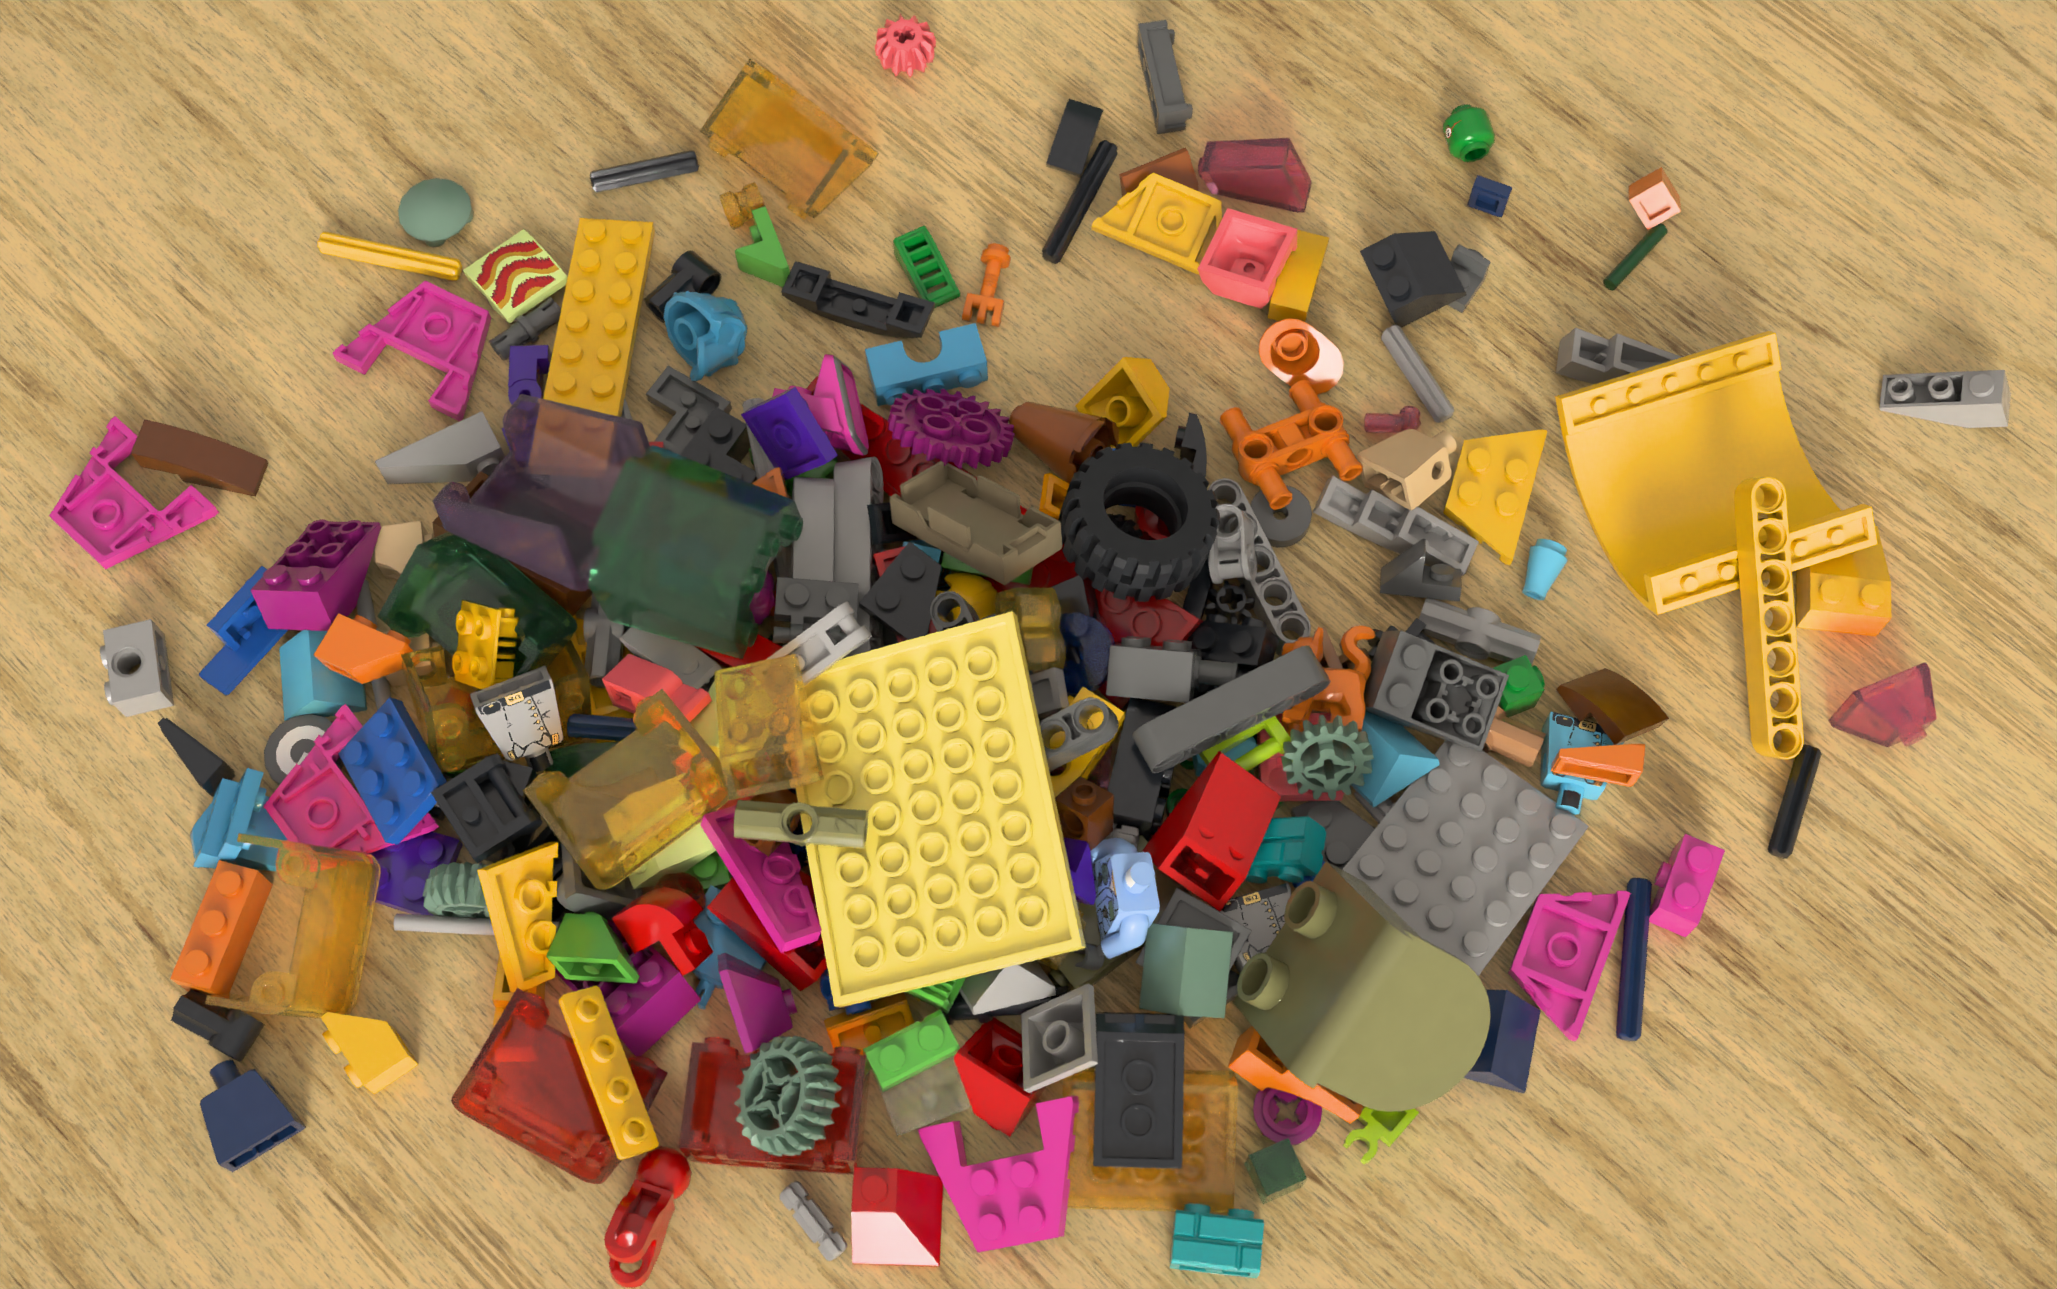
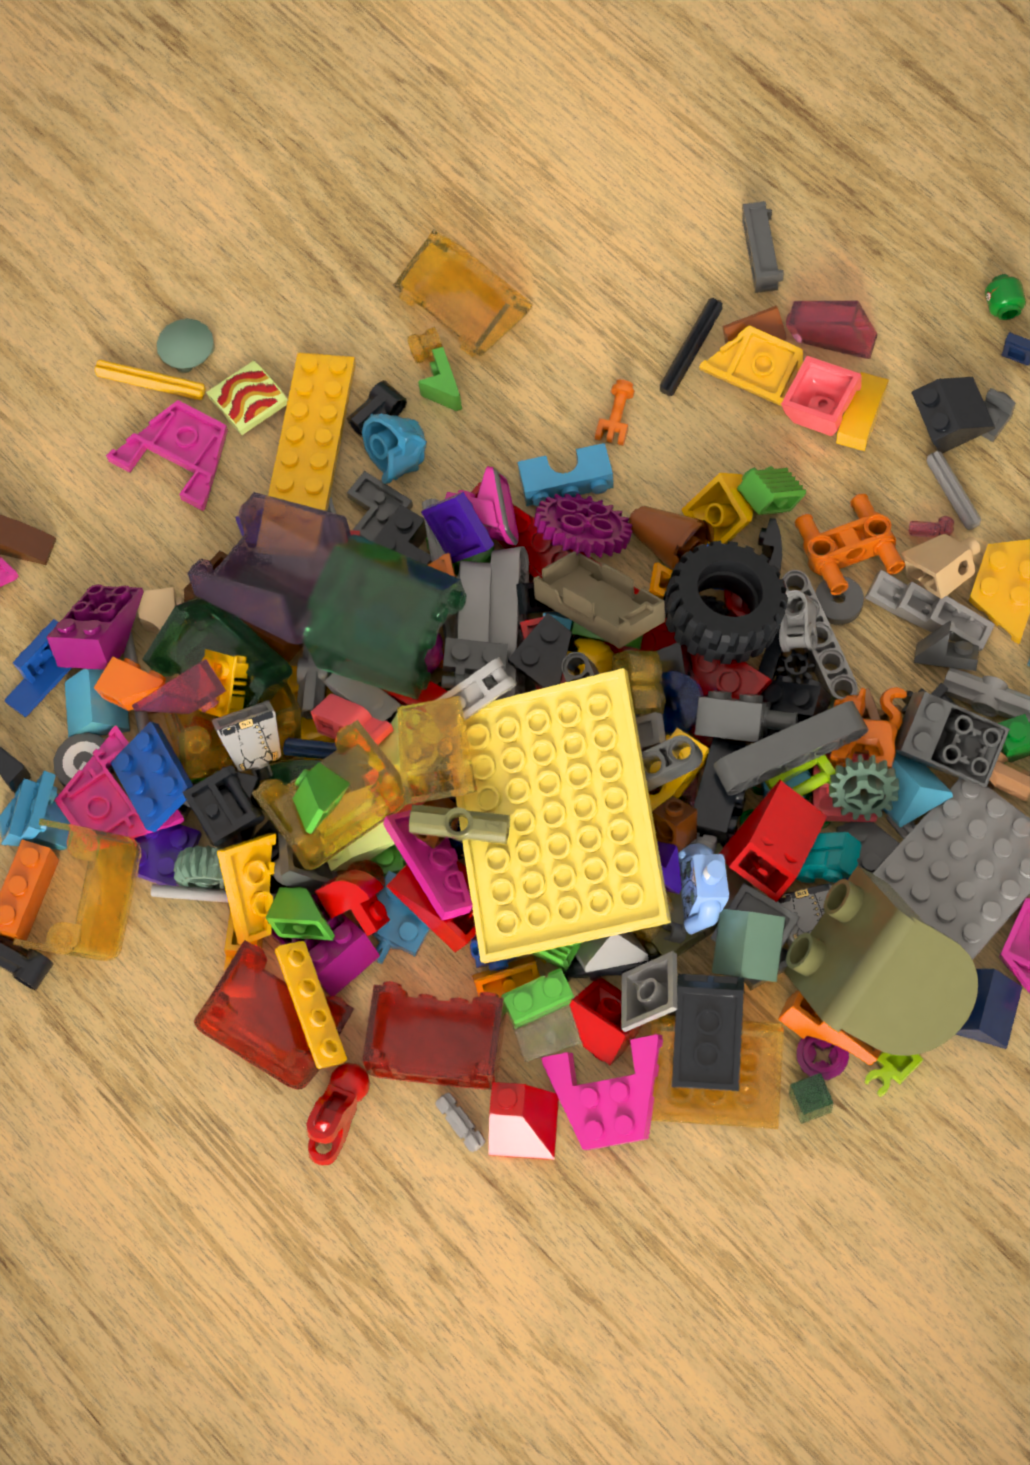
camera: 10 degrees right, 0 degrees up
(245, 1116) = (40, 1029): dark blue torso -> none
(371, 1047) = (133, 982): yellow slope -> none
(434, 659) = (185, 692): none -> clear pink slope
(445, 456) = (193, 537): light grey slope -> none
(526, 328) = (255, 439): dark grey pin -> none
(527, 370) = (254, 473): dark purple leg -> none
(611, 791) = (318, 795): none -> bright green slope
(644, 171) = (348, 315): black axle -> none
(755, 1002) = (422, 958): magenta slope -> none
(796, 1099) = (451, 1029): sand green gear -> none
(856, 306) = (512, 427): black slope -> none
(905, 45) = (556, 218): coral gear -> none
(915, 247) = (558, 382): green slope -> none
(1074, 137) = (688, 295): black slope -> none
(1189, 378) = (771, 490): none -> bright green brick
(1217, 1242) = (764, 1149): teal brick -> none
(1300, 353) = (860, 472): orange piece -> none

